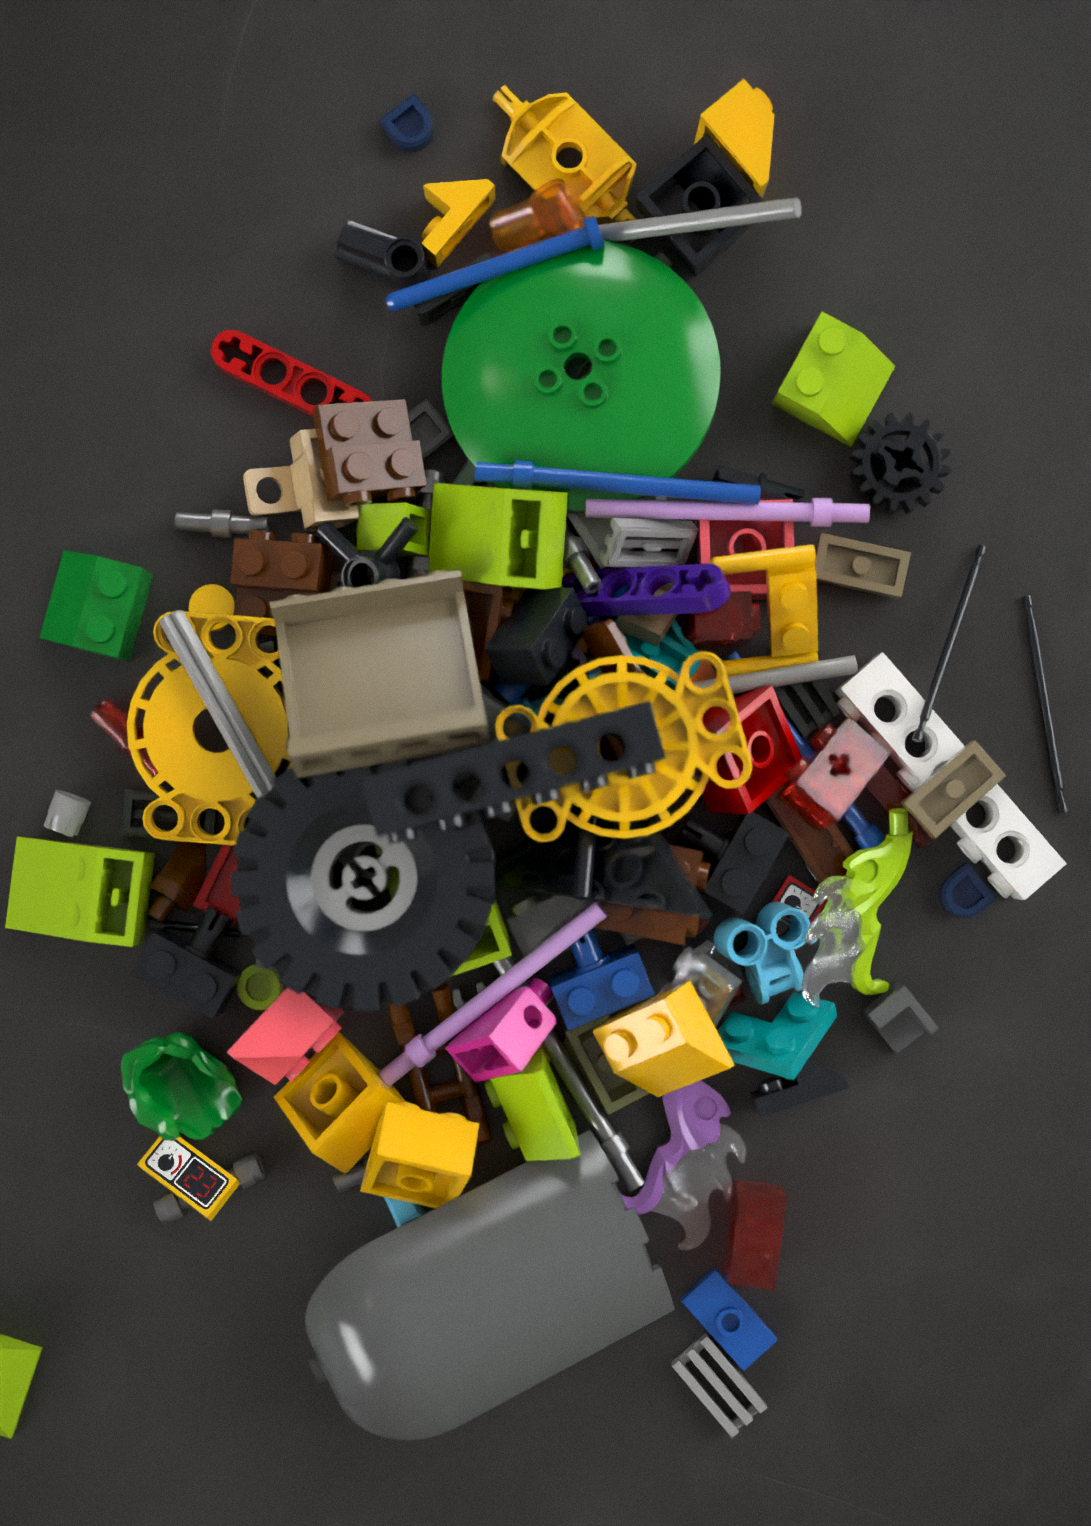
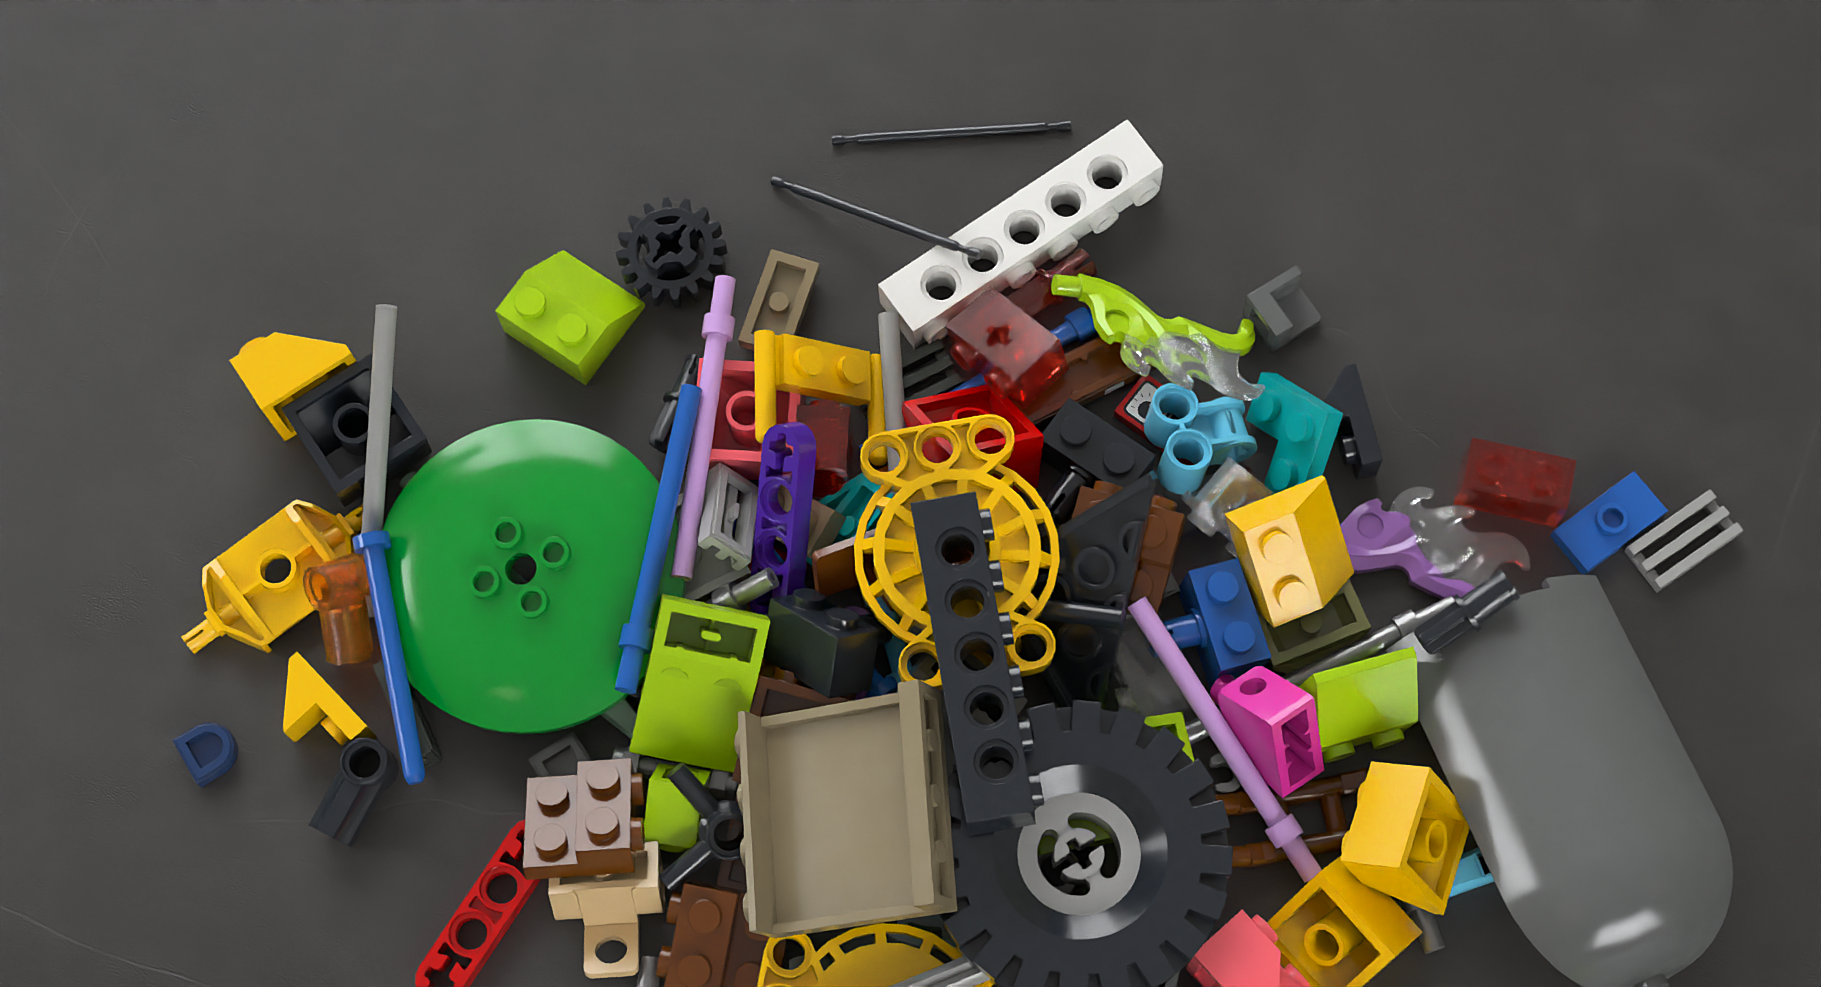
camera: 75 degrees left, 15 degrees down
(617, 1199) = (1466, 613): none -> black axle
(953, 789) = (1036, 222): dark tan plate -> none
(965, 892) = (1150, 231): dark blue tile -> none

